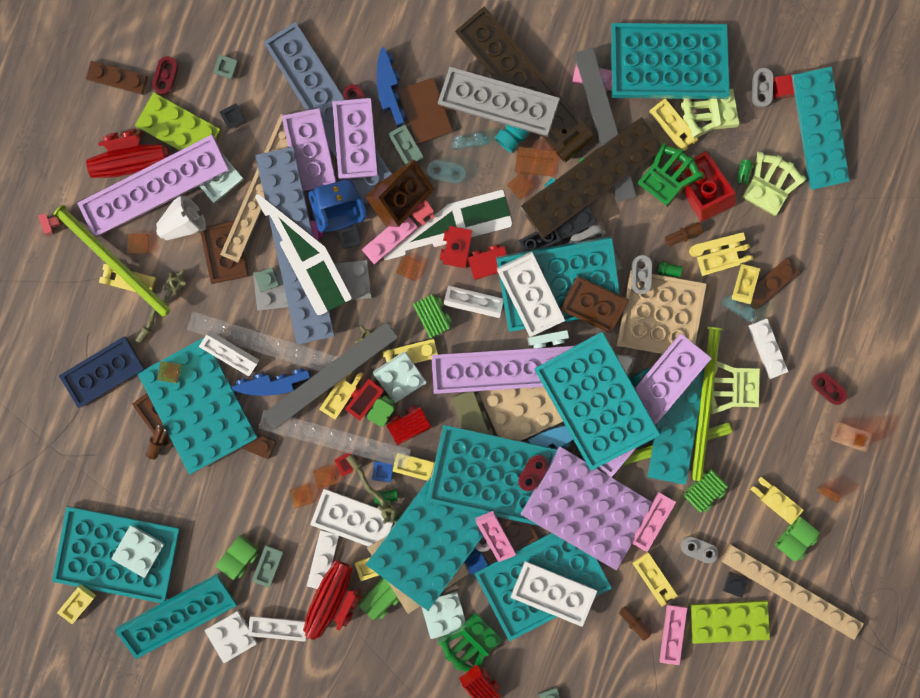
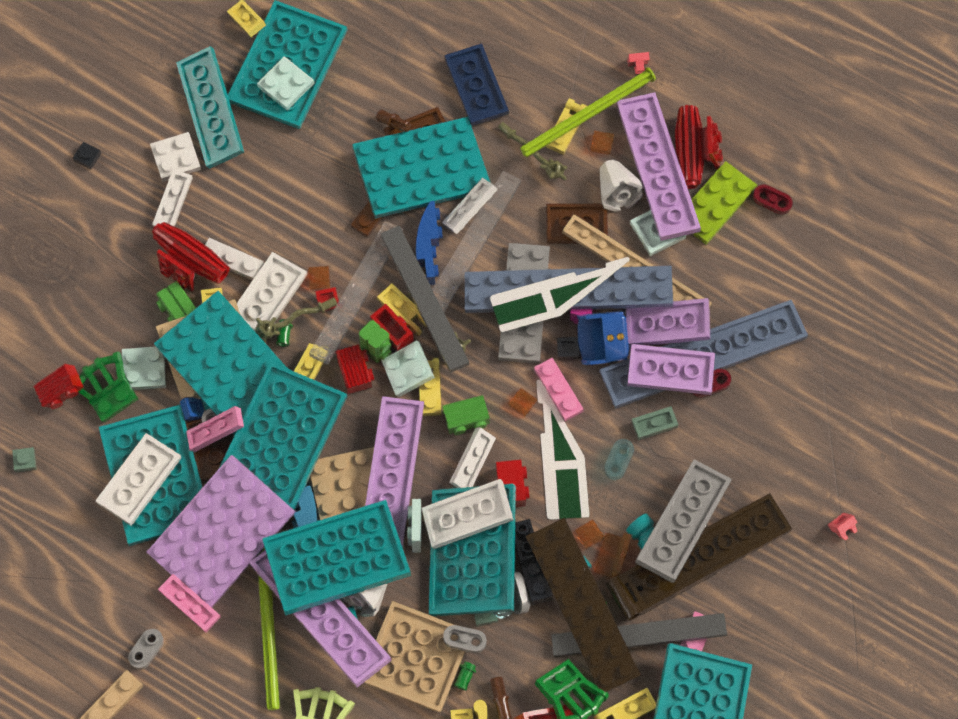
camera: 105 degrees right, 20 degrees down
(116, 77) = (778, 154): reddish brown plate -> none
(169, 372) = (462, 144): clear orange plate -> none
(225, 67) = (771, 259): sand green plate -> none
(232, 116) = (718, 256): black plate -> none
(237, 556) = (256, 176): bright green brick -> none
(266, 279) = (538, 255): sand green plate -> none
(267, 566) = (239, 204): sand green plate -> none
(301, 496) = (304, 250): clear orange plate -> none
(382, 471) = (309, 333): blue plate -> none
(386, 81) = (729, 415): blue slope -> none
(400, 194) = (603, 405): reddish brown slope -> none
(422, 211) = (581, 424): coral tile -> none
(423, 113) = (680, 448): reddish brown tile -> none
(456, 247) = (535, 453): red brick -> none
(469, 412) = (351, 434): olive brick -> none
(477, 140) = (647, 497): clear light blue plate -> none
(532, 472) = (273, 476): dark red plate -> none
(594, 304) = (442, 583): reddish brown tile -> none
(635, 623) = (83, 562): reddish brown axle -> none
(654, 578) = (126, 593): light yellow plate -> none
(673, 634) = (60, 601): bright pink plate -> none
(677, 430) = (283, 646): teal plate -> none
(704, 492) = (210, 666): bright green brick -> none
(705, 404) = (307, 682): lime axle -> none
(729, 621) = (57, 667): lime plate -> none
(735, 584) = (97, 681): black plate -> none

